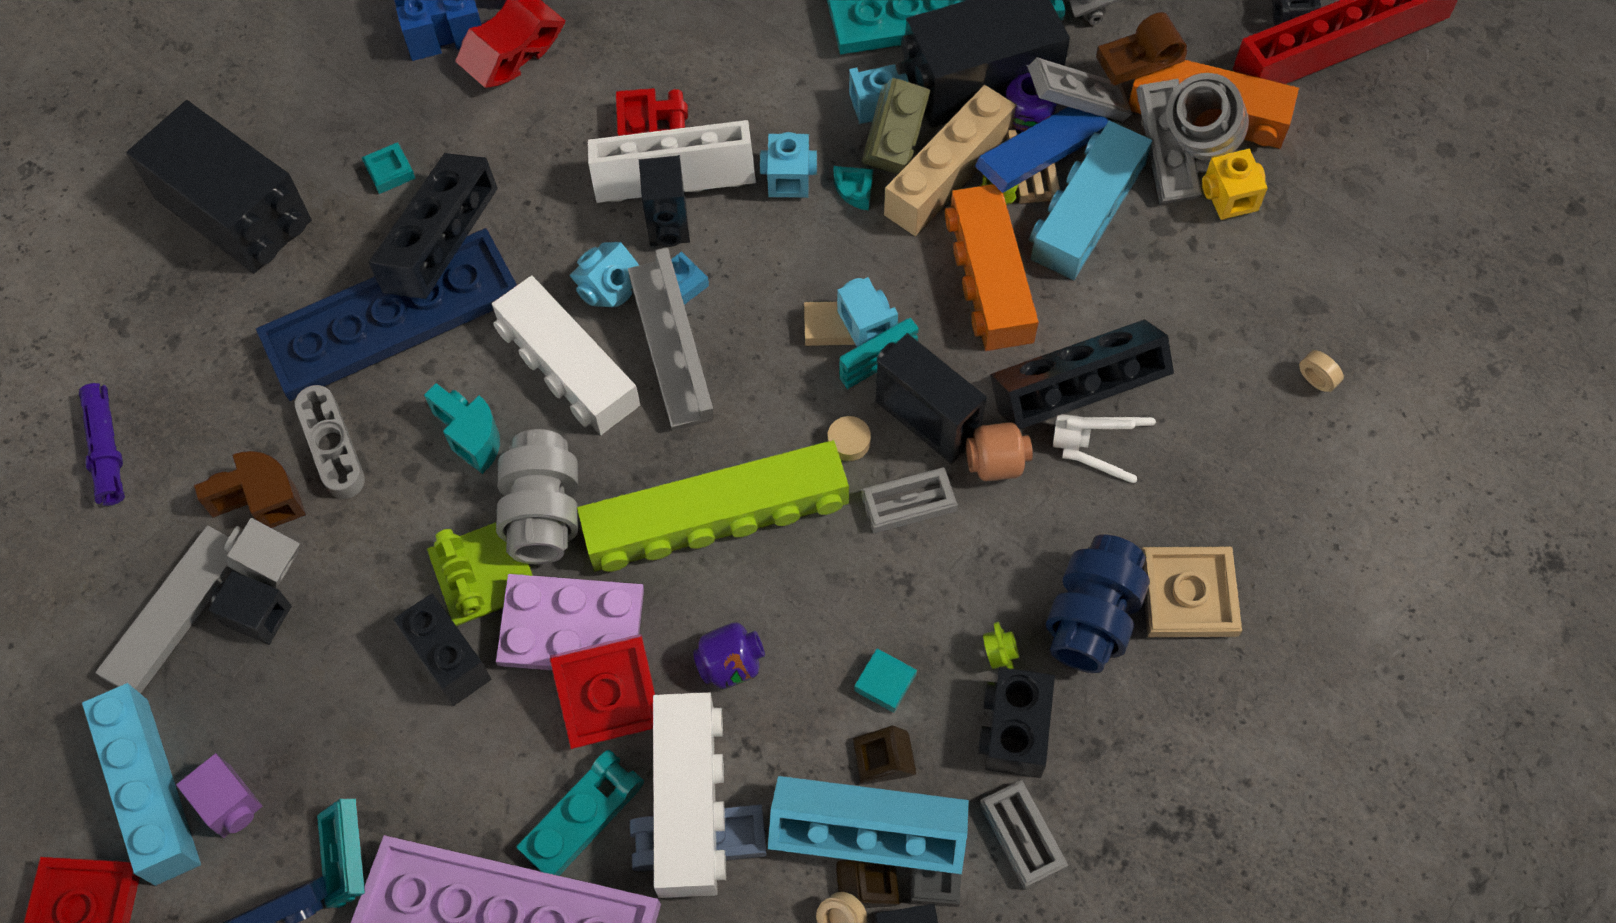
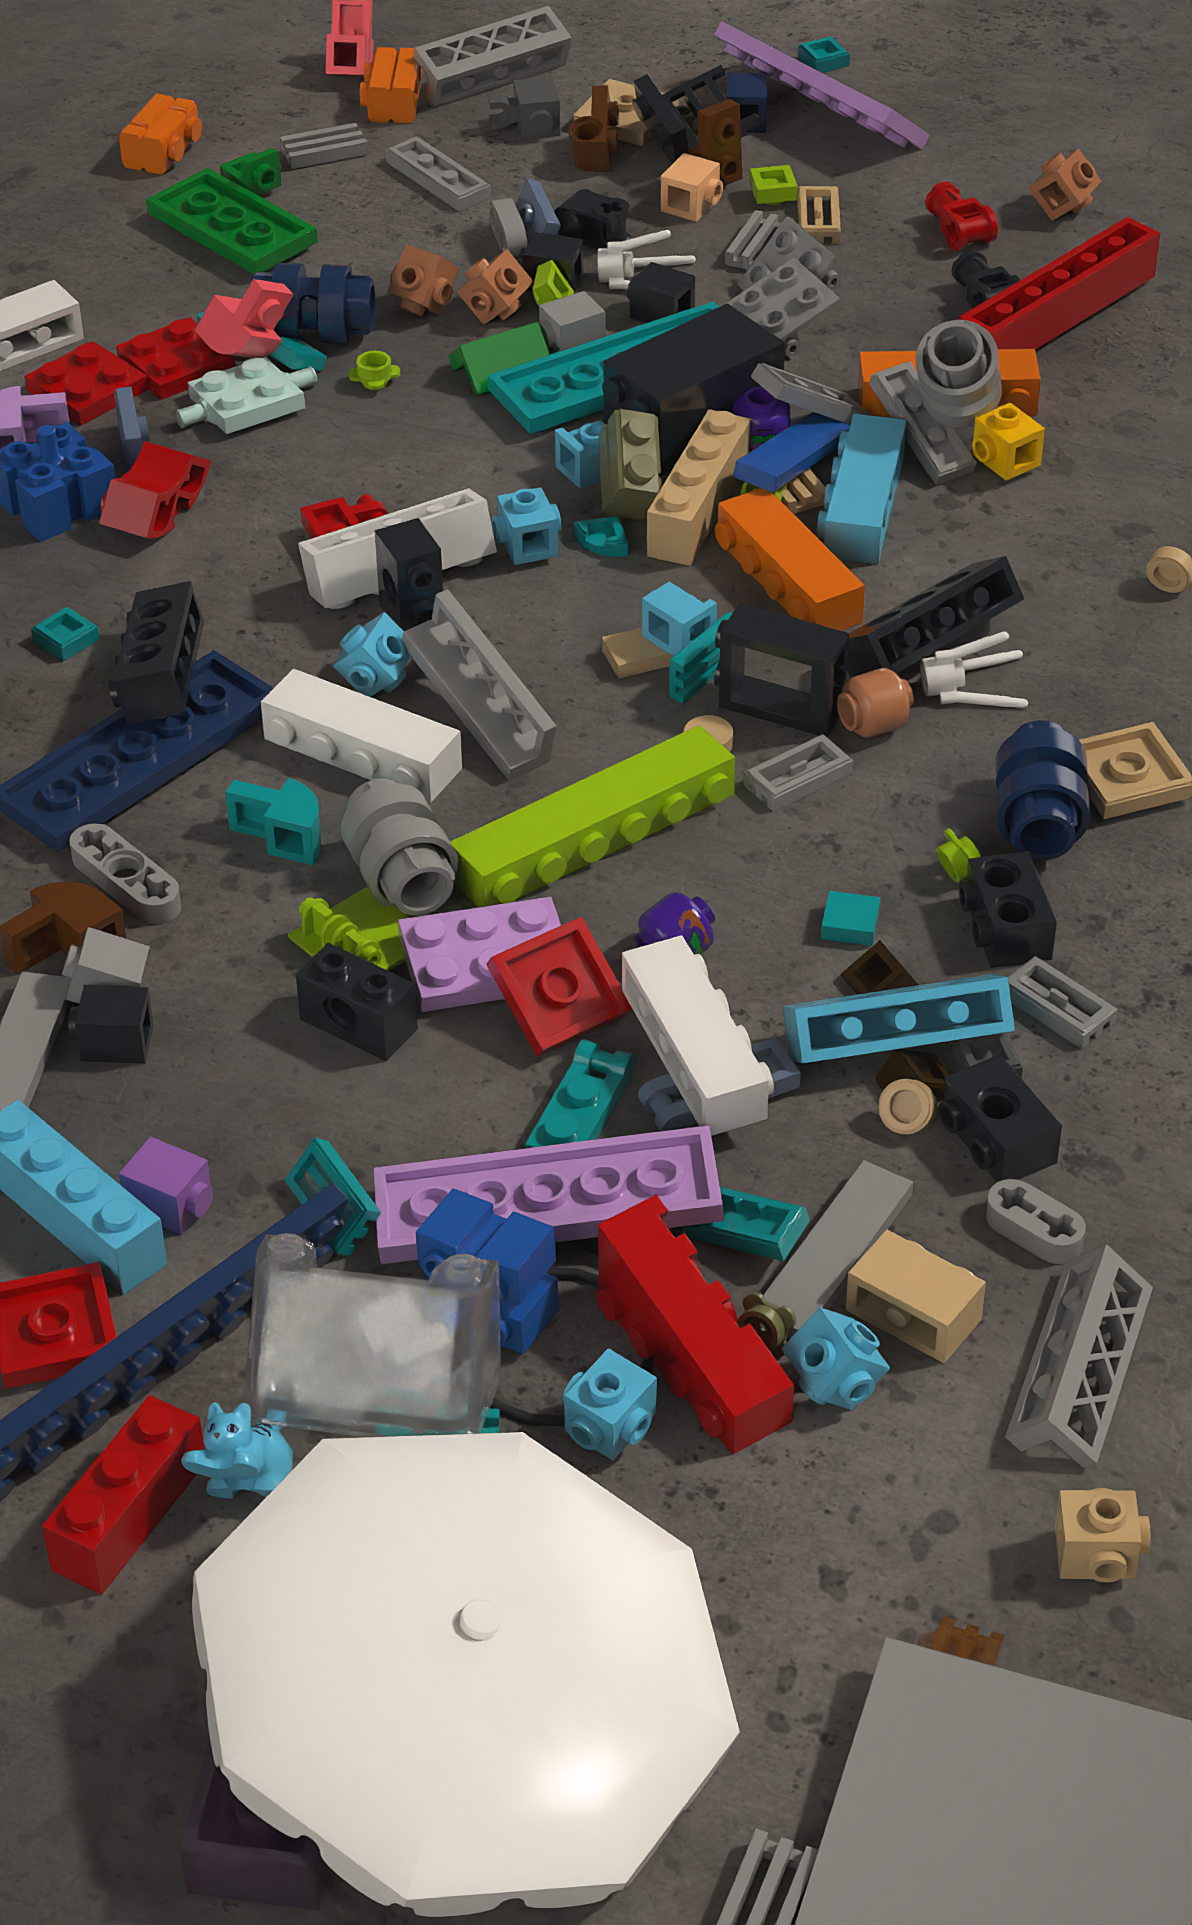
camera: 20 degrees left, 20 degrees down
(1148, 50) = (870, 340): reddish brown plate -> none

